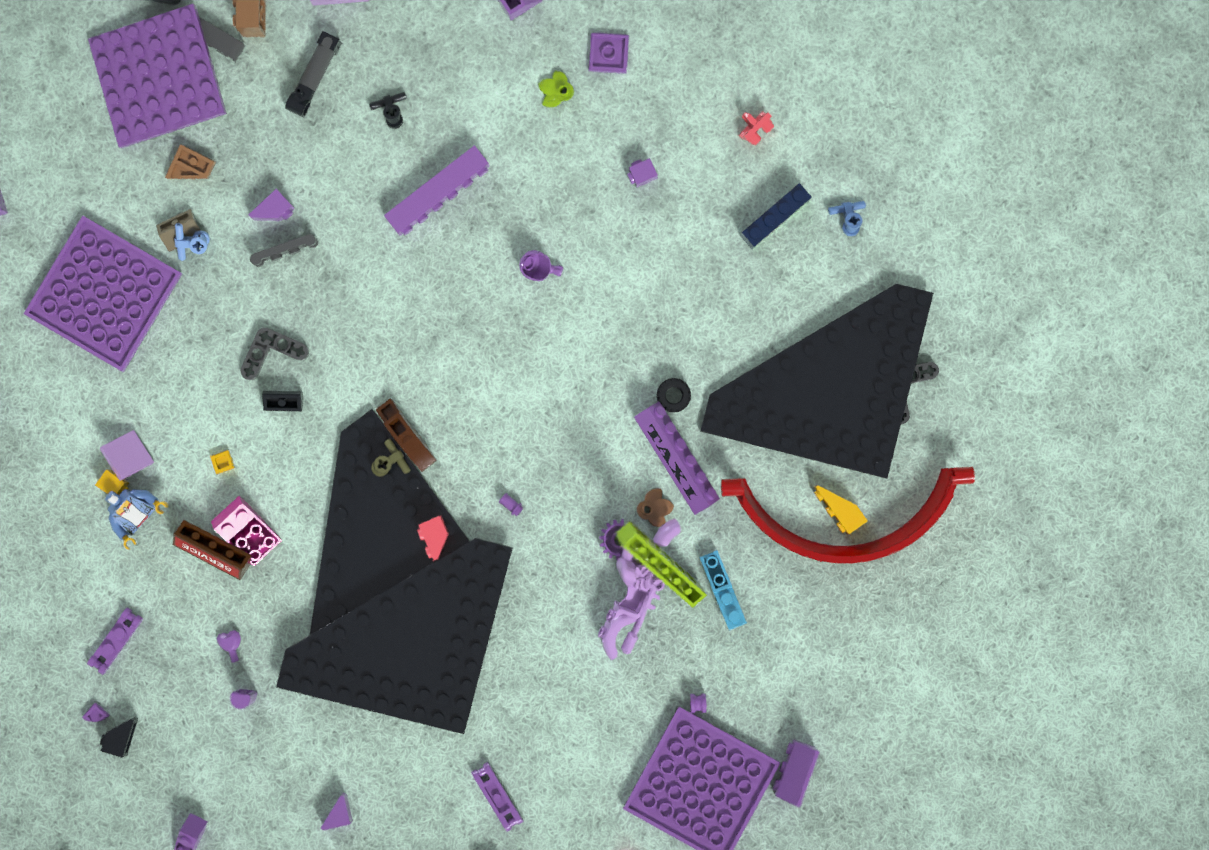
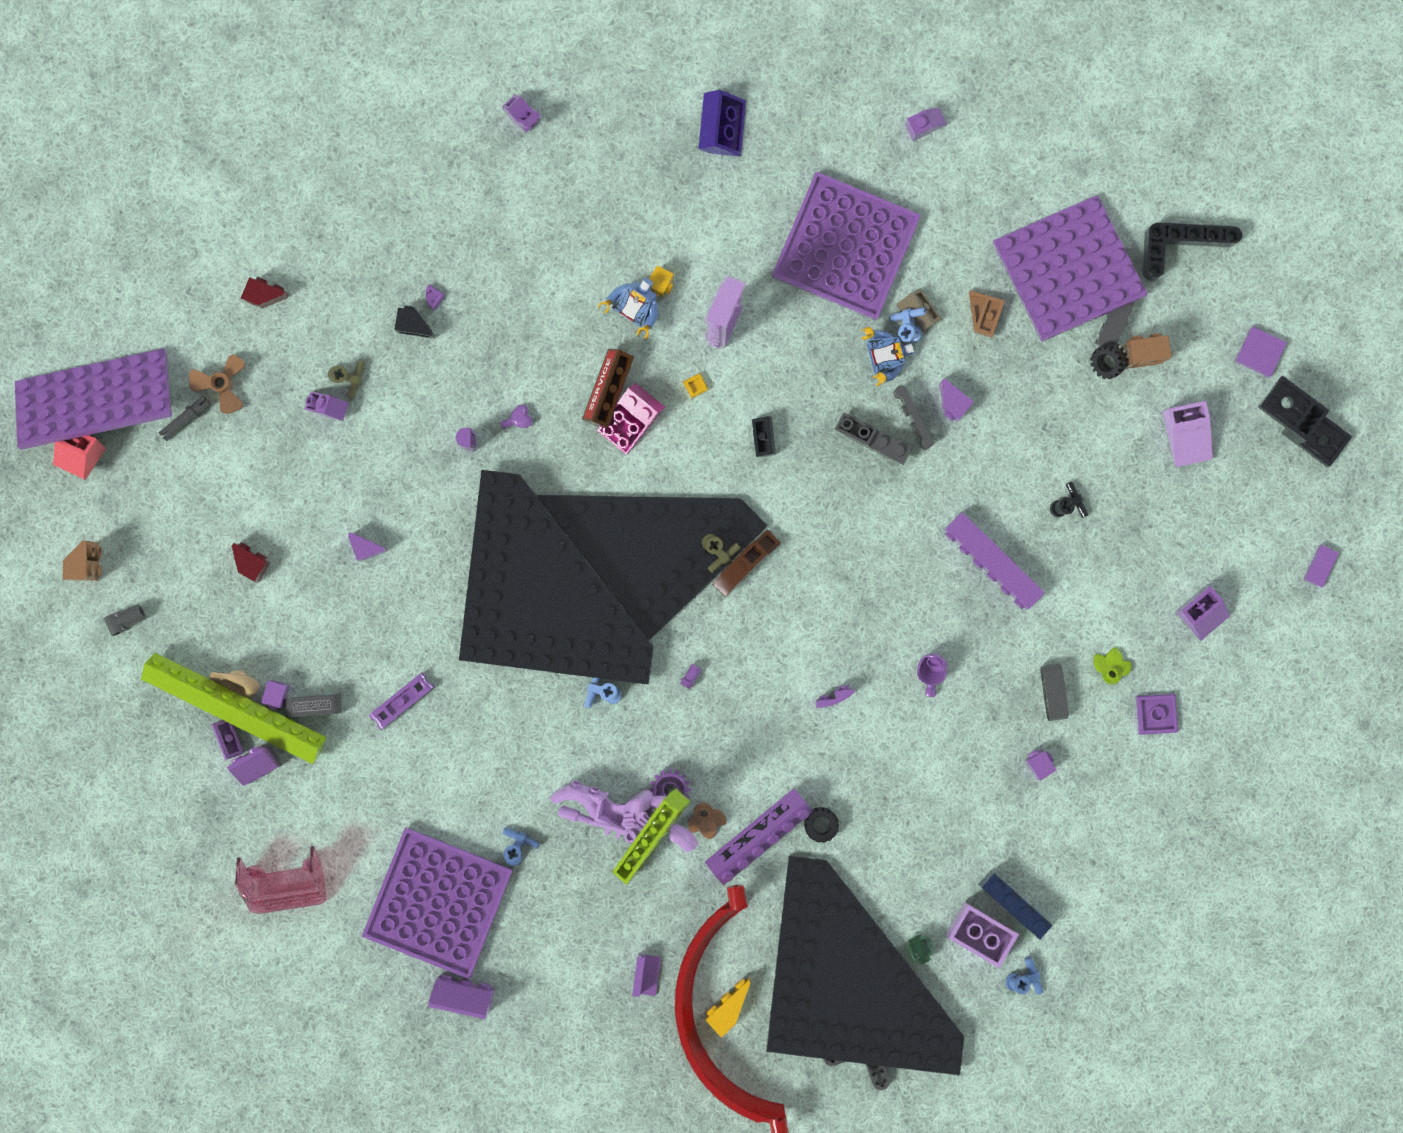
camera: 85 degrees right, 0 degrees up
(115, 641) = (506, 306): medium lavender plate -> none
(126, 455) = (689, 291): lavender tile -> none
(149, 423) = (724, 312): none -> lavender window
(168, 804) = (355, 379): none -> olive piece
(216, 268) = (886, 354): none -> torso
(258, 59) = (1117, 355): none -> black tyre
(265, 347) = (814, 412): dark grey beam -> none
(300, 99) = (1067, 413): piece -> none
(300, 292) = (873, 439): none -> dark grey slope
(435, 536) = (650, 606): coral slope -> none
(514, 593) = (603, 691): none -> light blue piece
(548, 358) = (839, 695): none -> medium lavender slope
(574, 149) = (1054, 692): none -> dark grey beam
(649, 694) = (520, 839): none -> medium blue piece
(698, 703) = (518, 889): medium lavender wheel -> none
(723, 590) = (633, 899): medium azure slope -> none
(754, 124) = (1096, 868): coral hips -> none
(799, 586) = (646, 975): none -> medium lavender panel
(800, 252) = (982, 934): none -> lavender brick
(807, 314) = (920, 949): none -> clear green head

